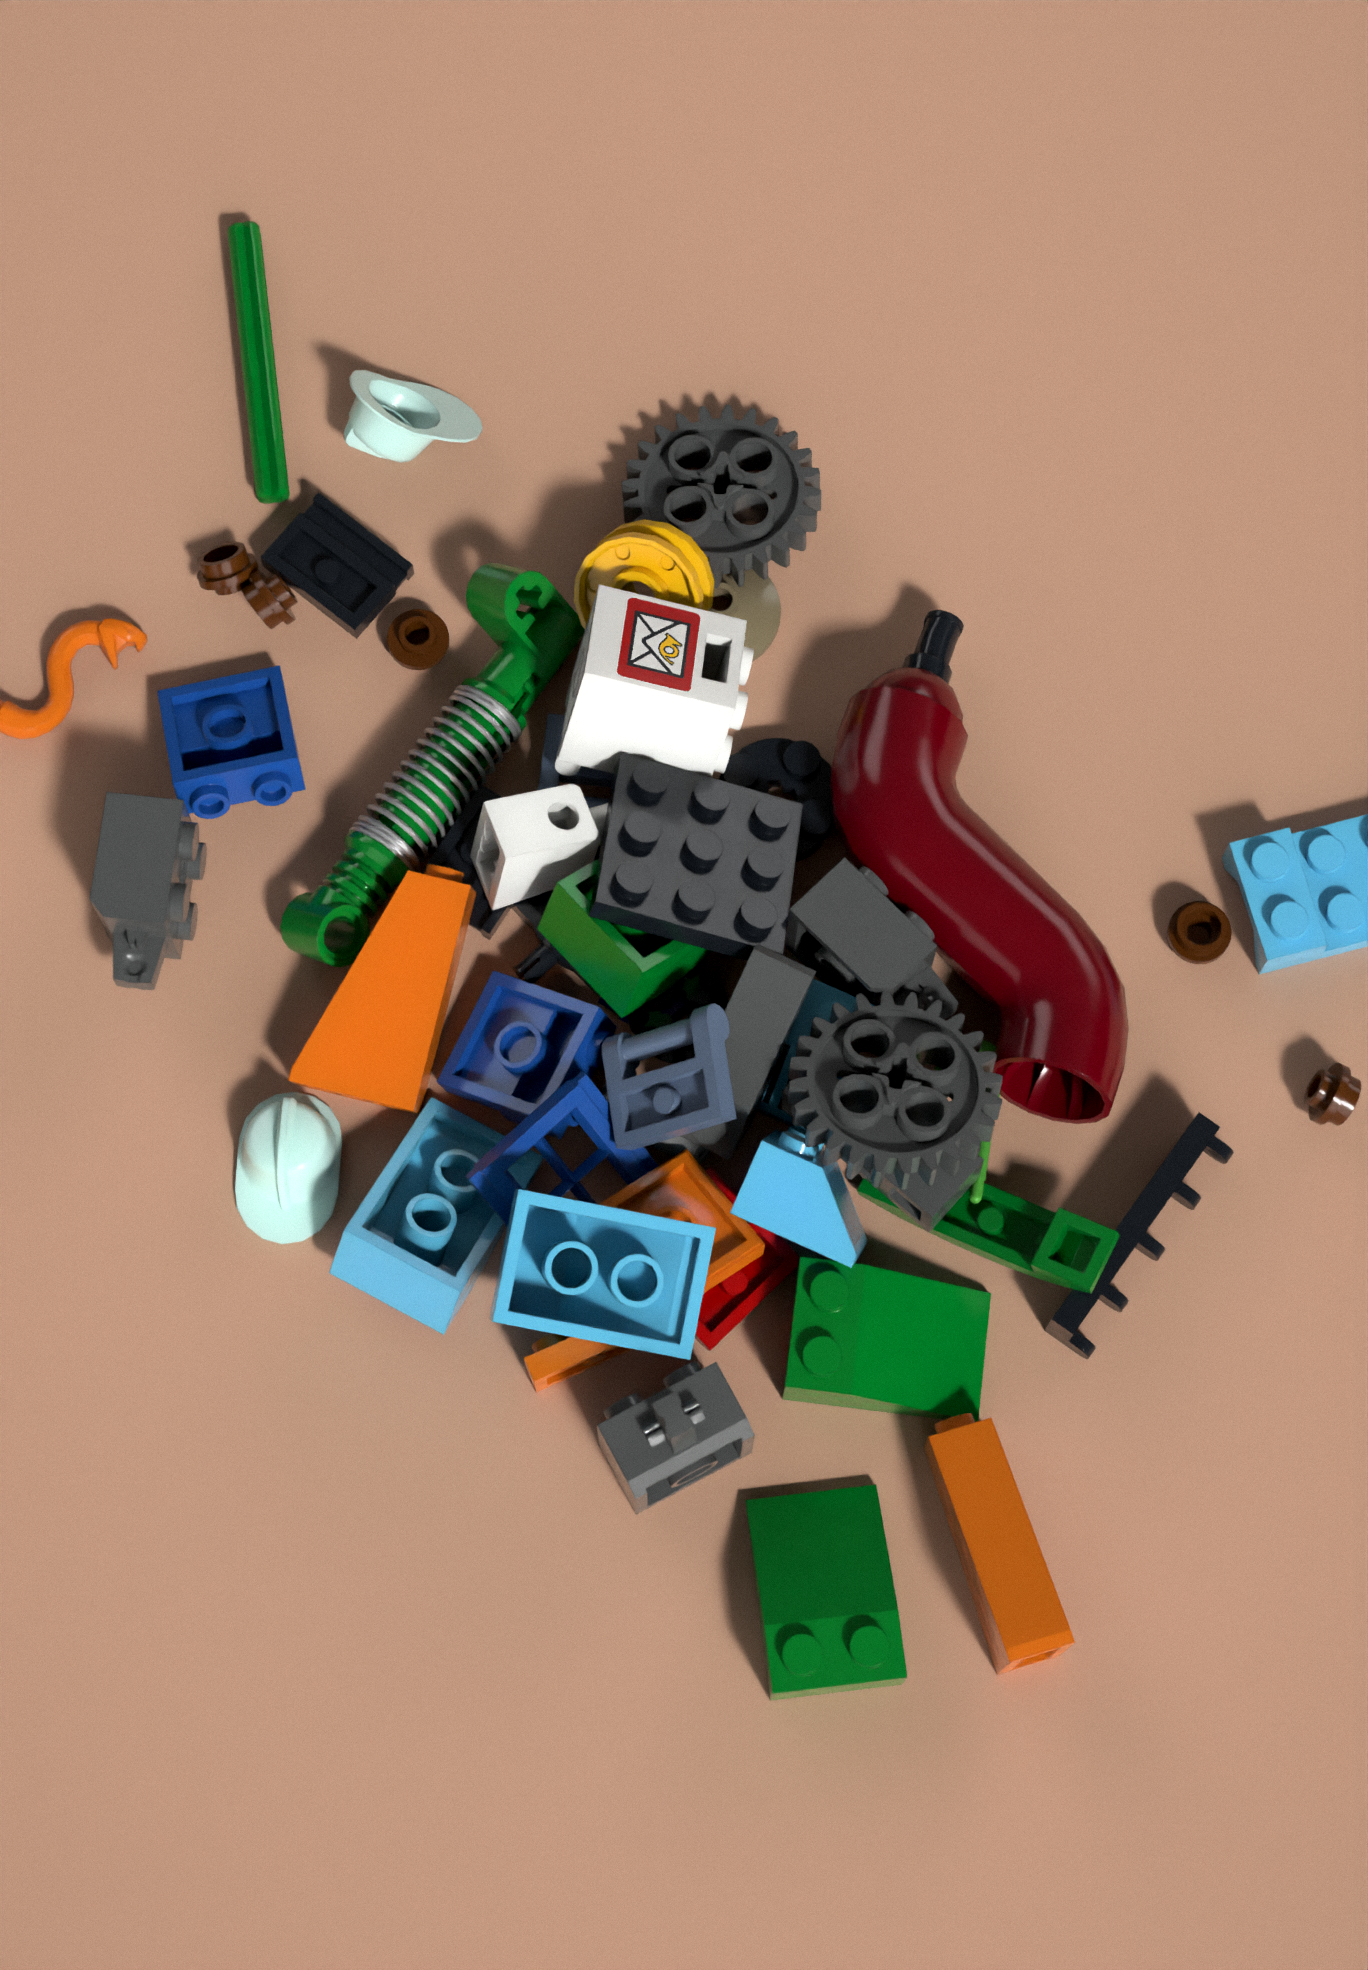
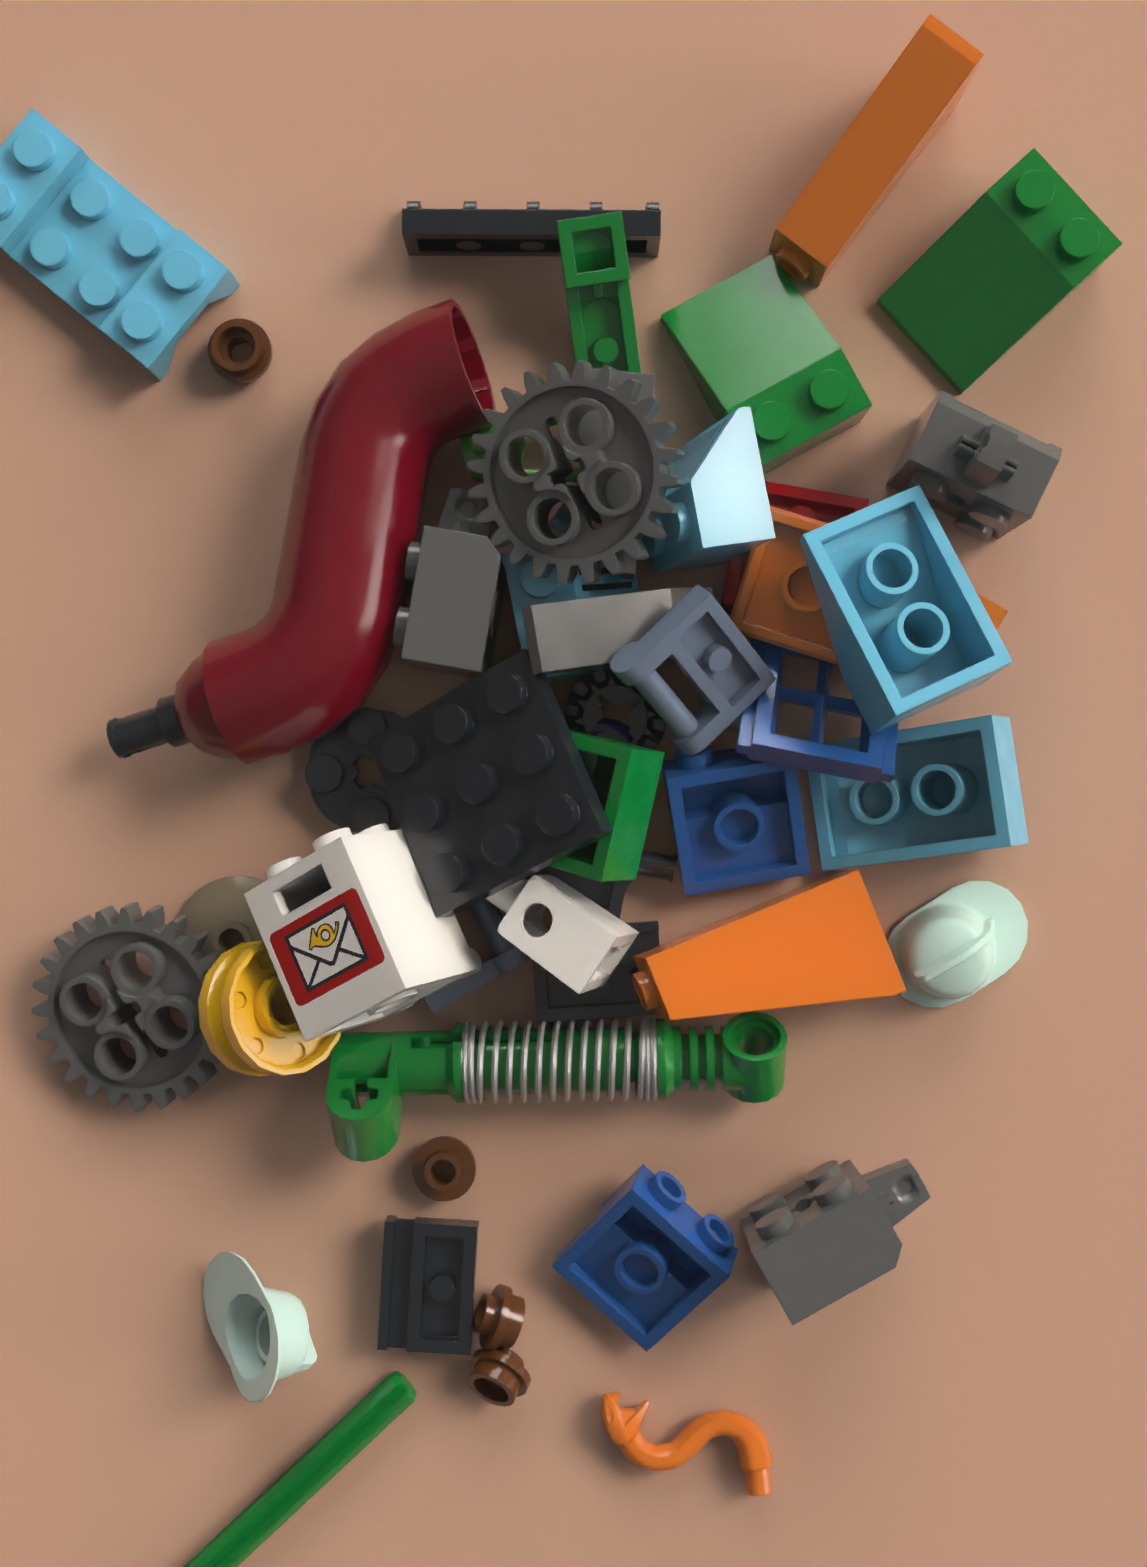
camera: 120 degrees left, 15 degrees up
(1332, 1095) = (304, 148): reddish brown plate -> none

